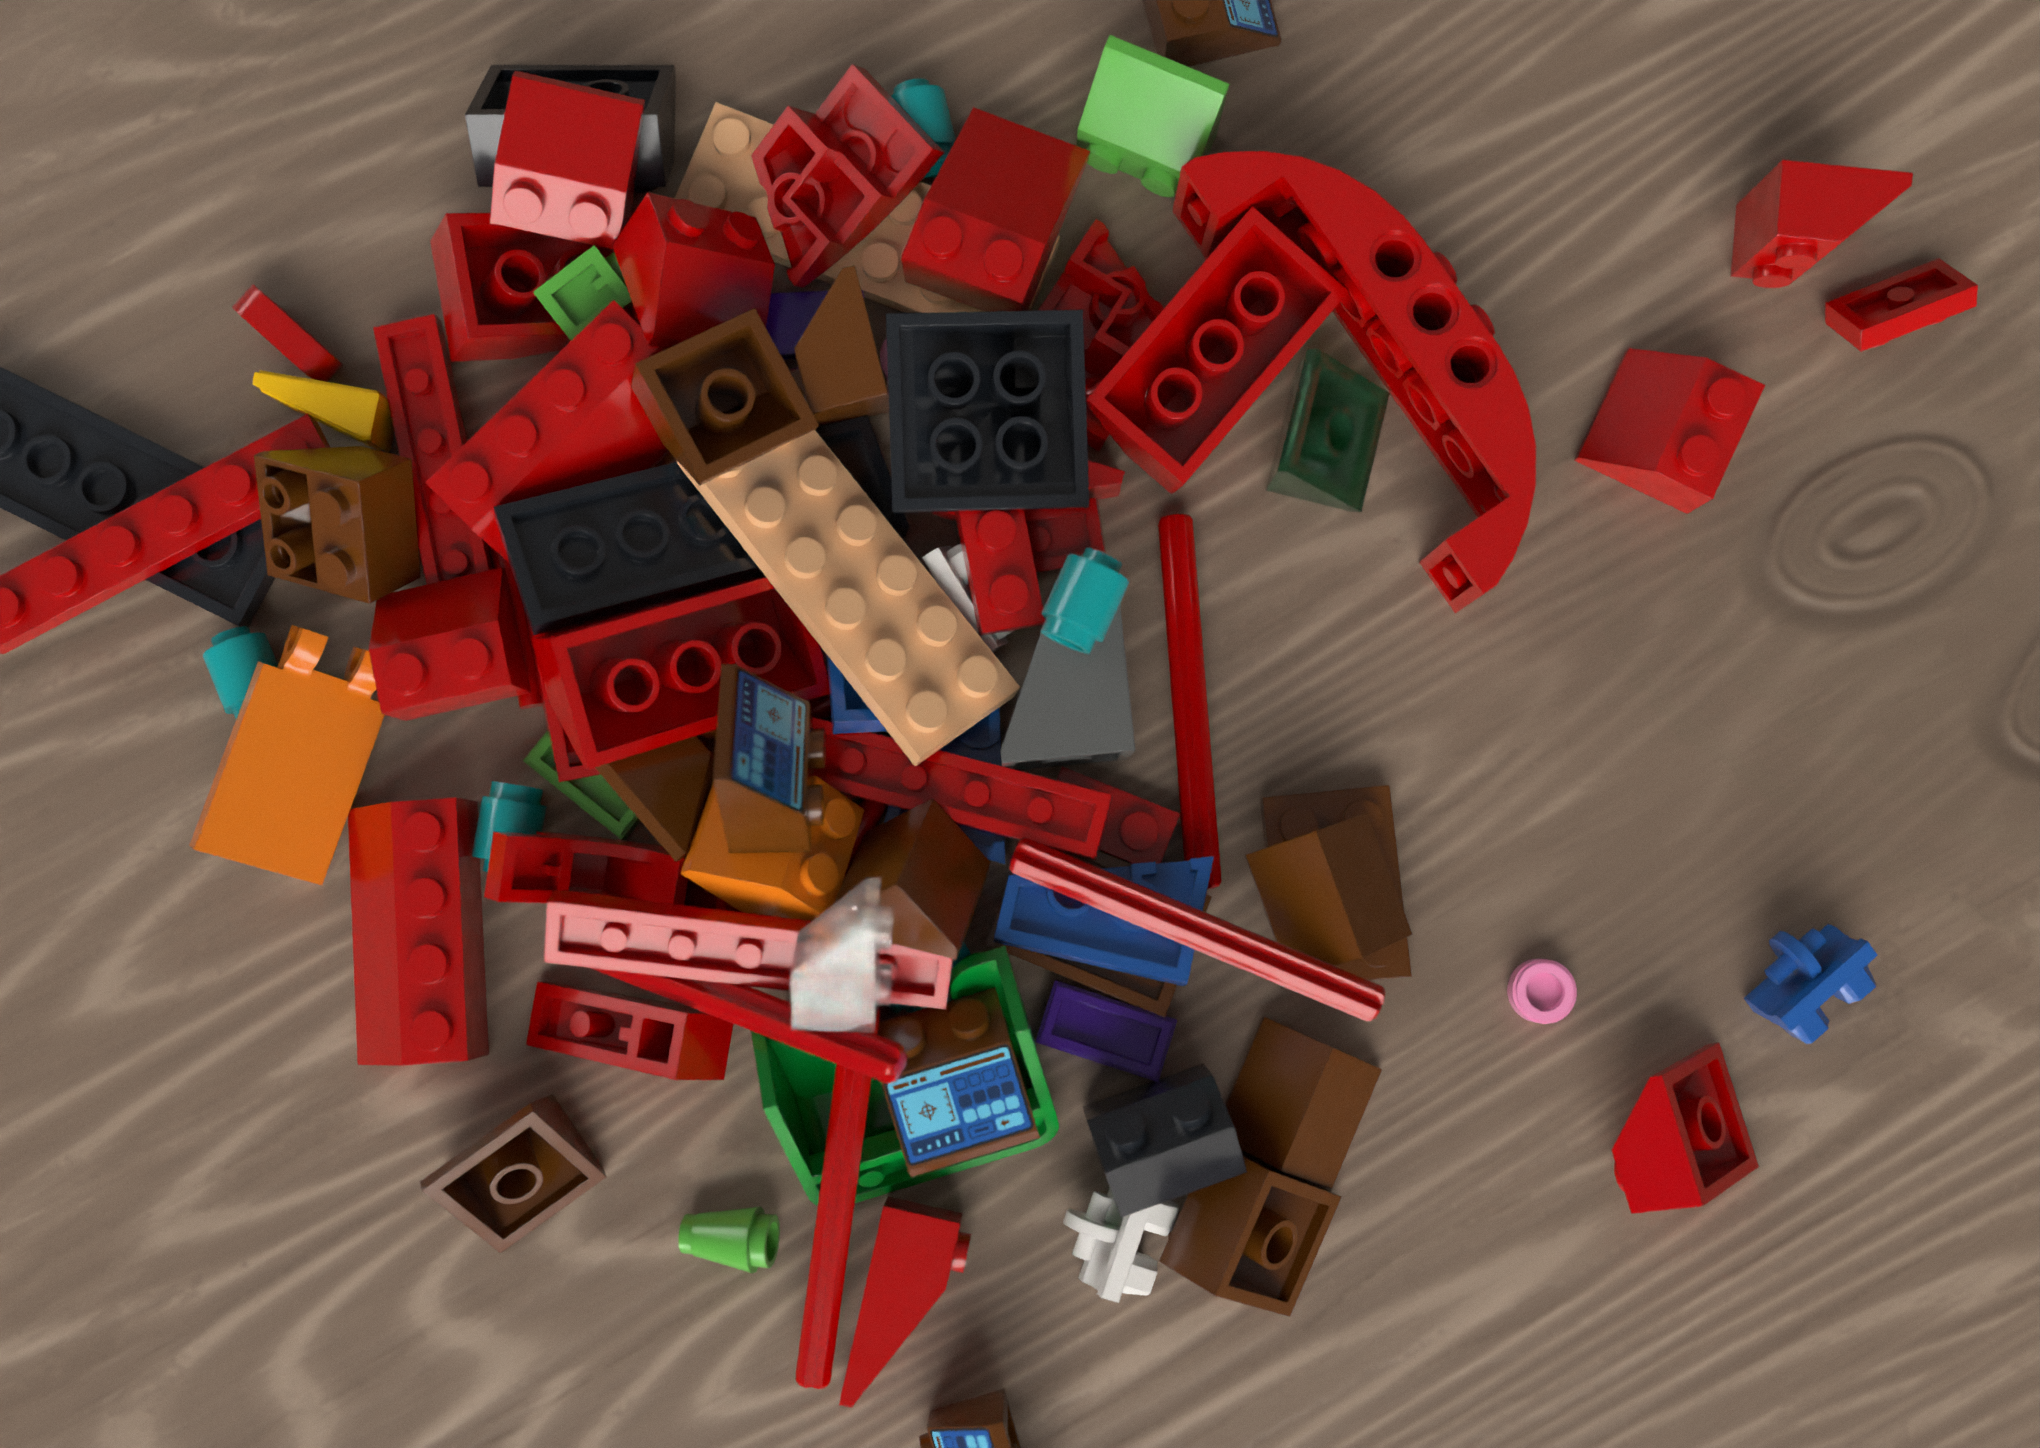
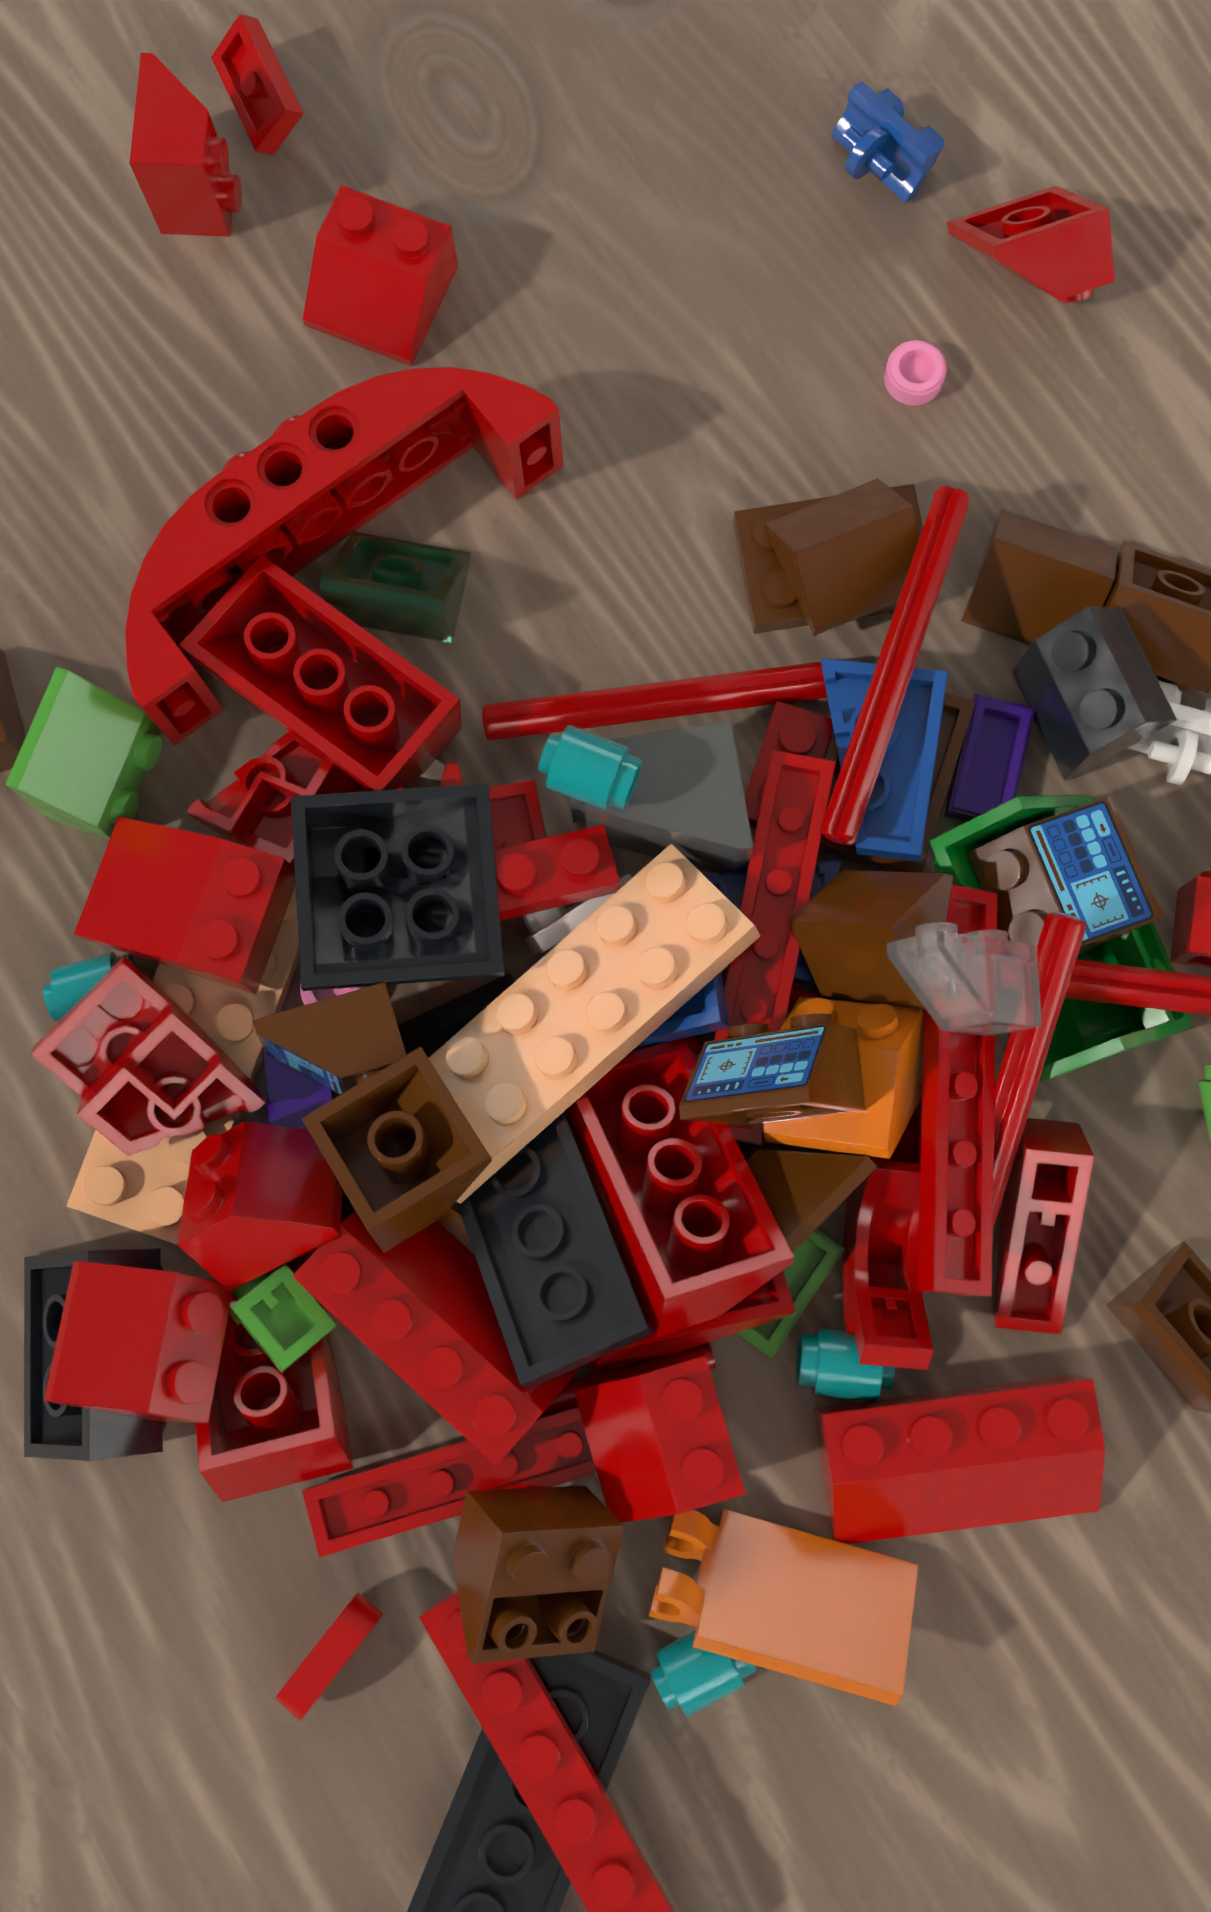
camera: 90 degrees left, 5 degrees down
(345, 408) = (410, 1576): yellow slope -> none

